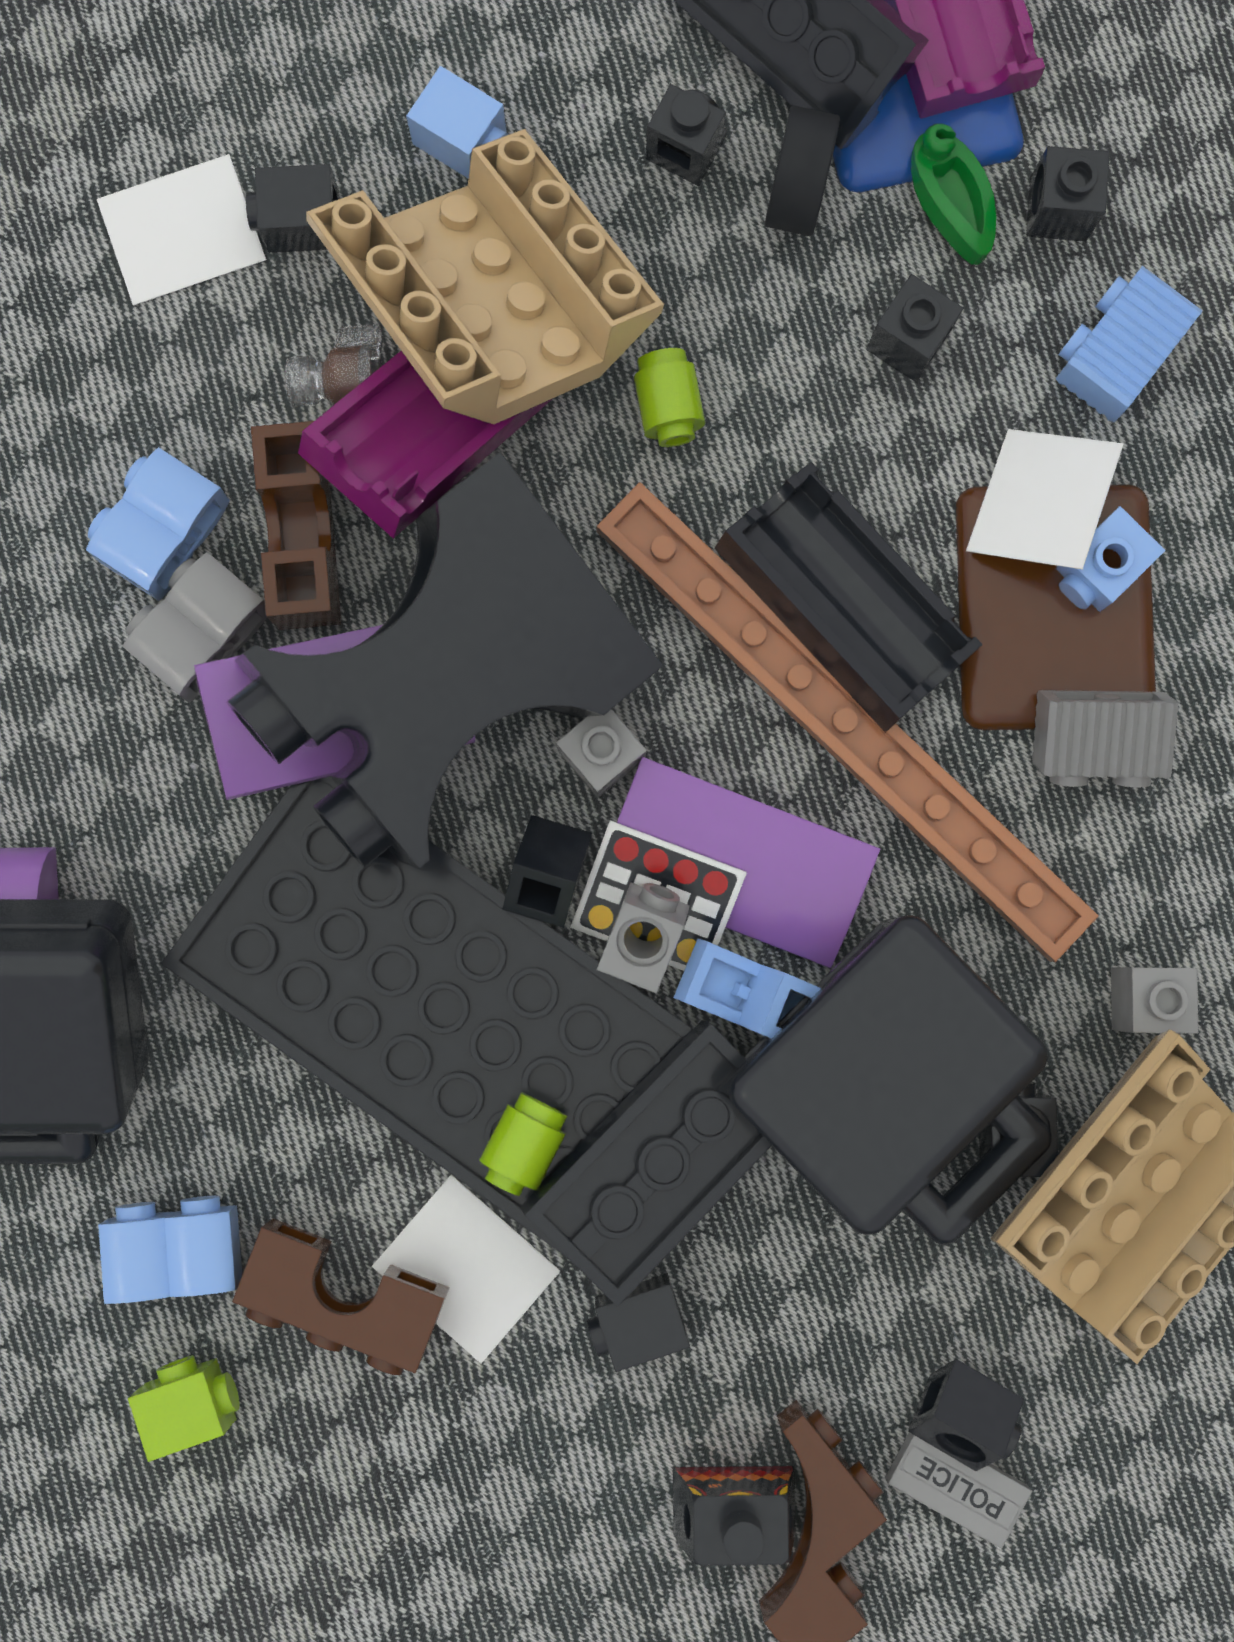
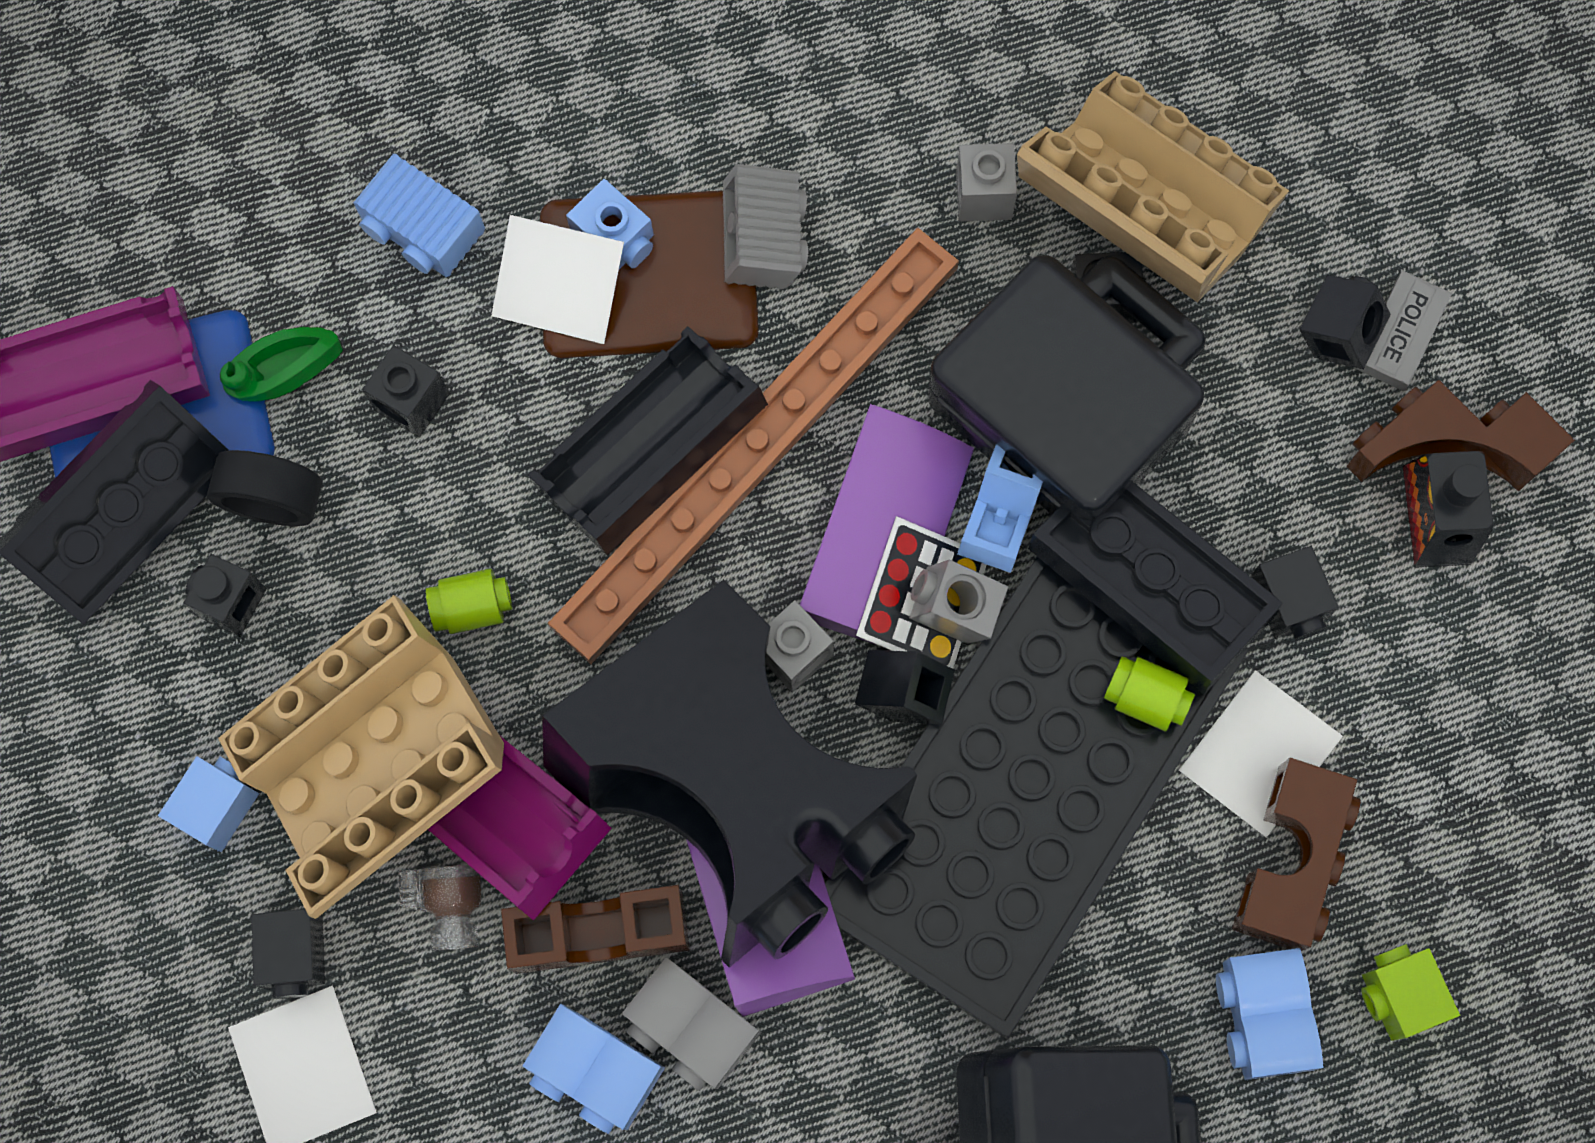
camera: 85 degrees left, 10 degrees down
(1067, 193) = (285, 267): black brick -> none

